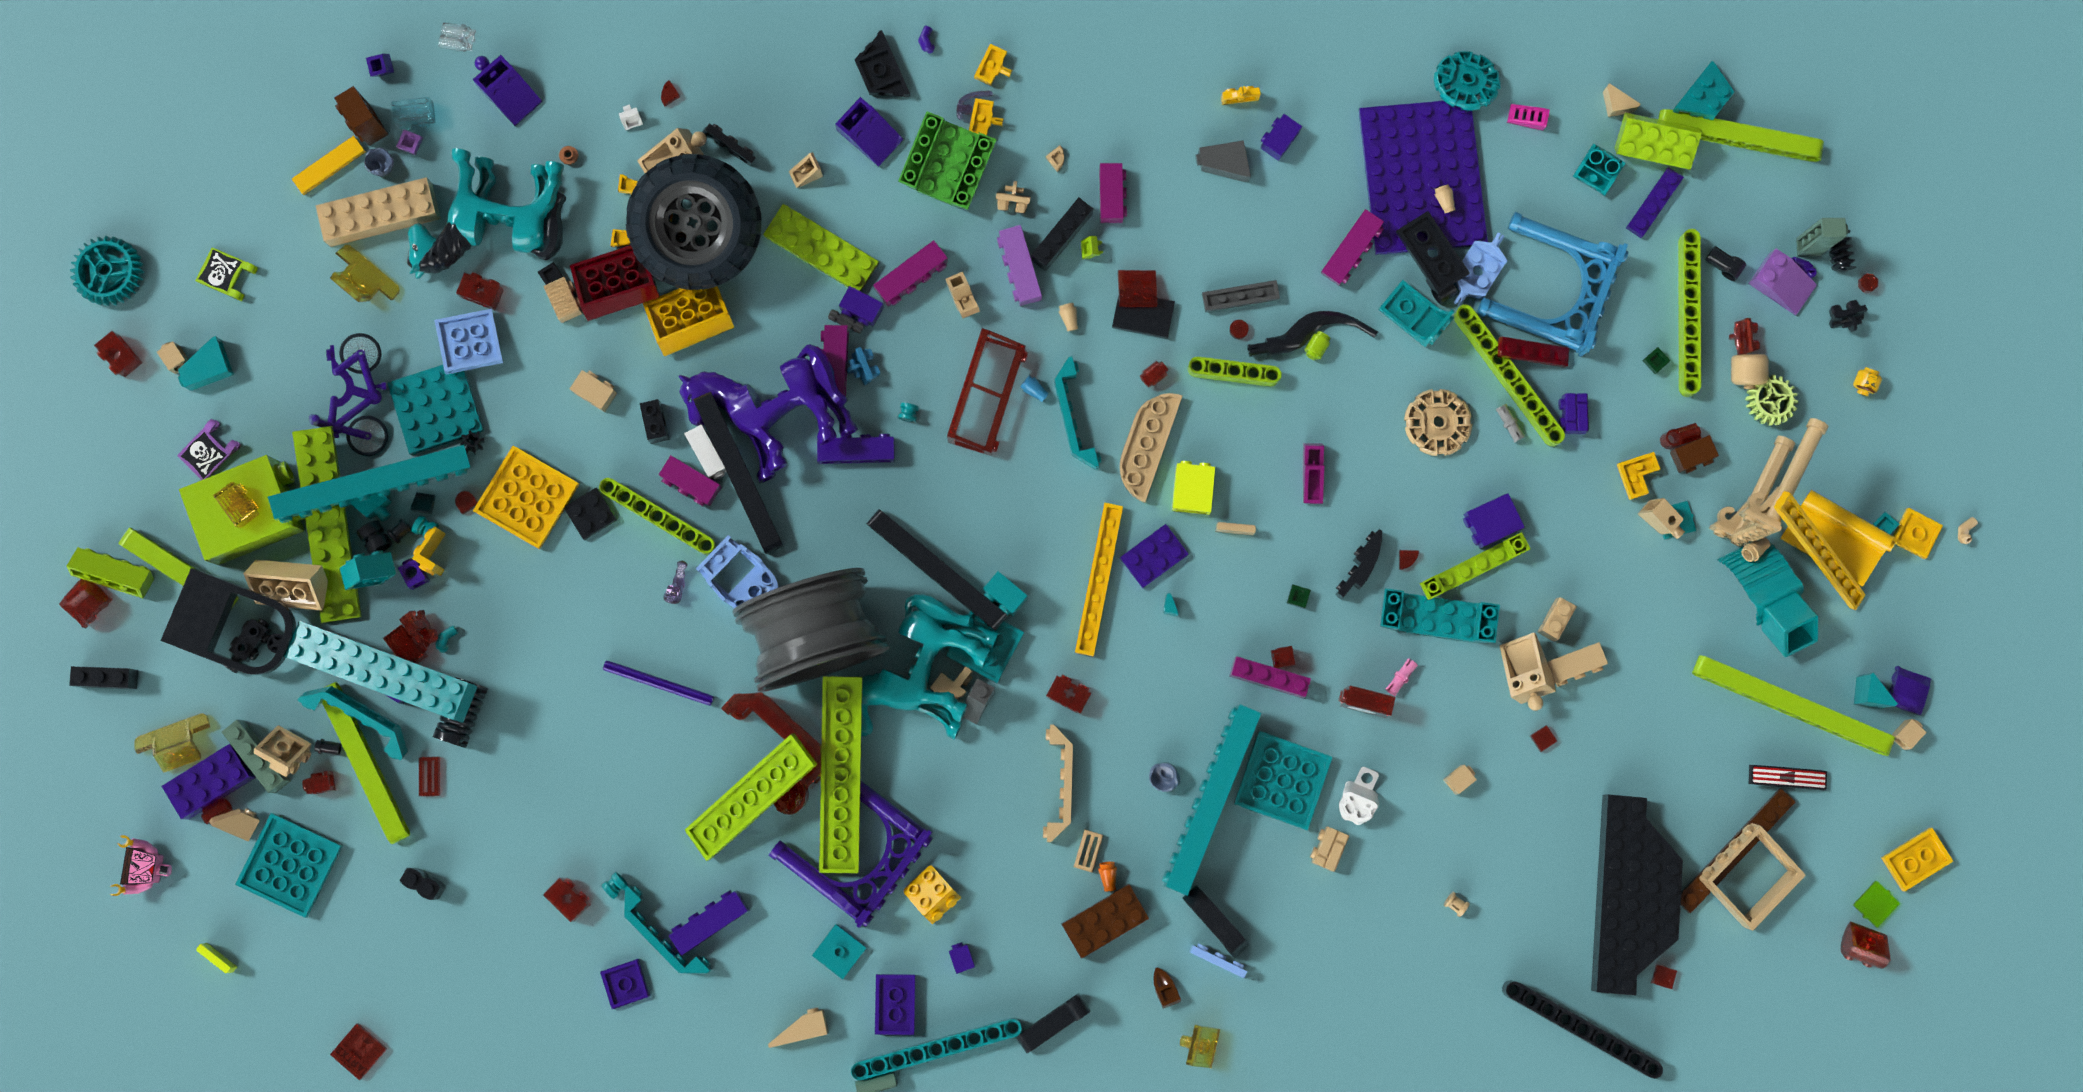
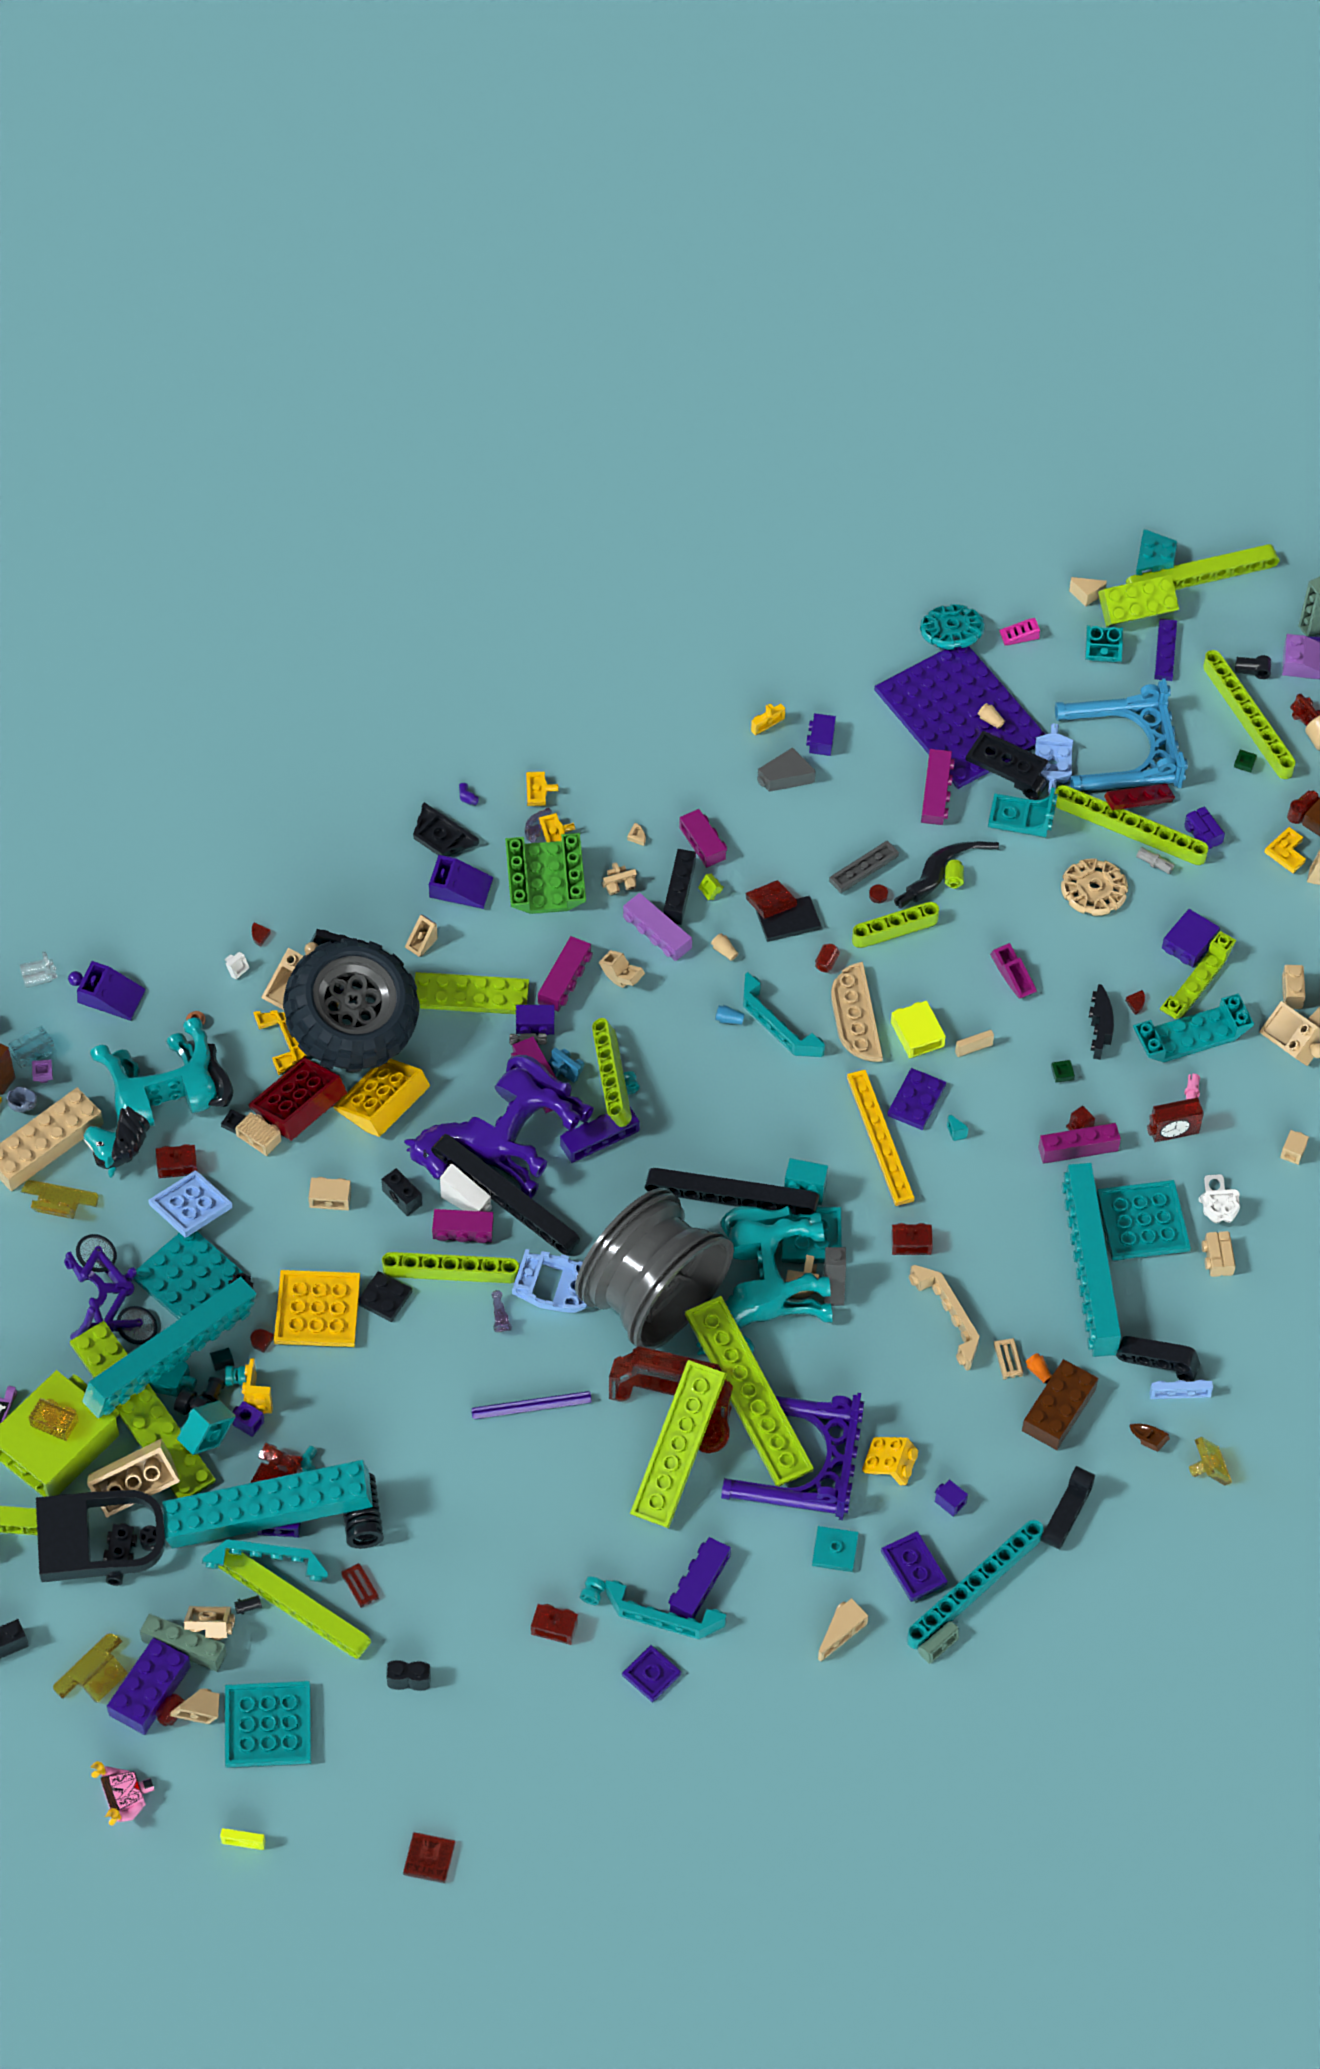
camera: 25 degrees left, 25 degrees down
(319, 783) = (258, 1638): clear red brick -> none
(894, 399) = (611, 1072): none -> lime beam
(1019, 357) = (680, 1072): clear red windscreen -> none
(1164, 777) = (1038, 1264): sand blue hair -> none

